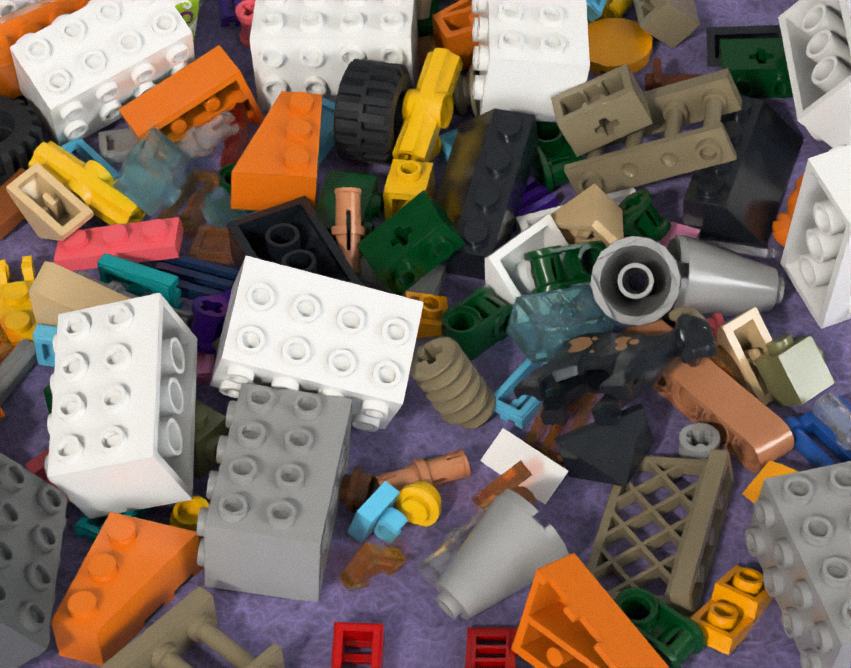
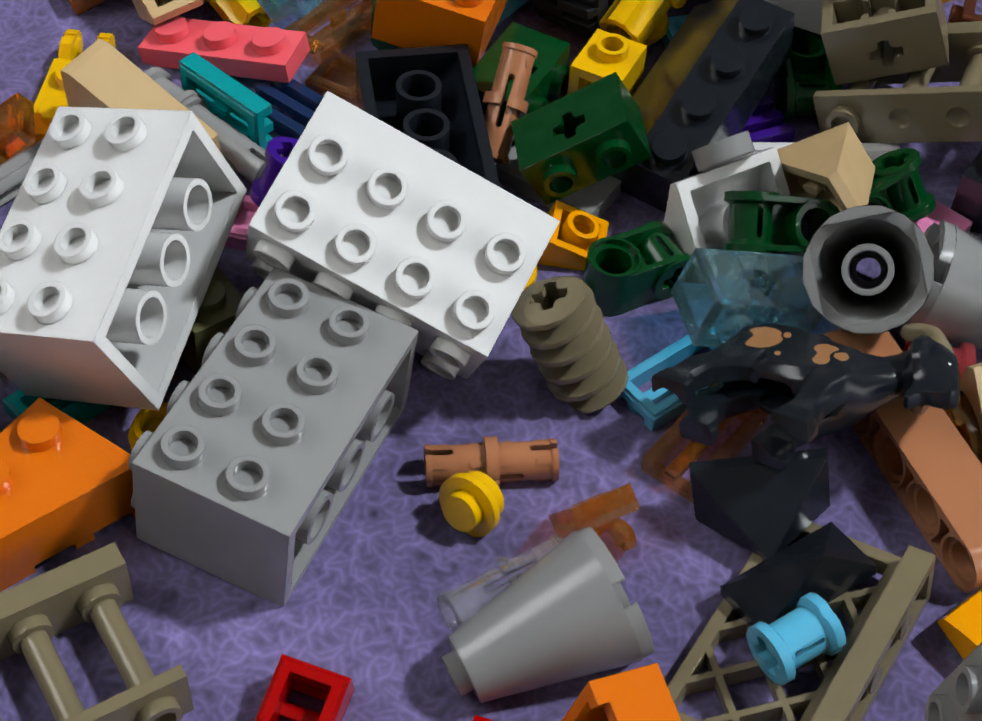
camera: 10 degrees right, 5 degrees up
(218, 209) = (357, 33): clear light blue plate -> none
(356, 488) = (394, 458): reddish brown plate -> none
(369, 562) = (373, 570): clear orange tile -> none
(378, 516) = (409, 505): medium azure tile -> none
(509, 450) = (624, 461): white sticker -> none
(514, 226) = (723, 152): none -> light grey tile
(646, 492) = (818, 563): none -> black slope
(654, 523) = (796, 638): none -> medium azure bush
(699, 436) = (894, 512): light grey bush -> none

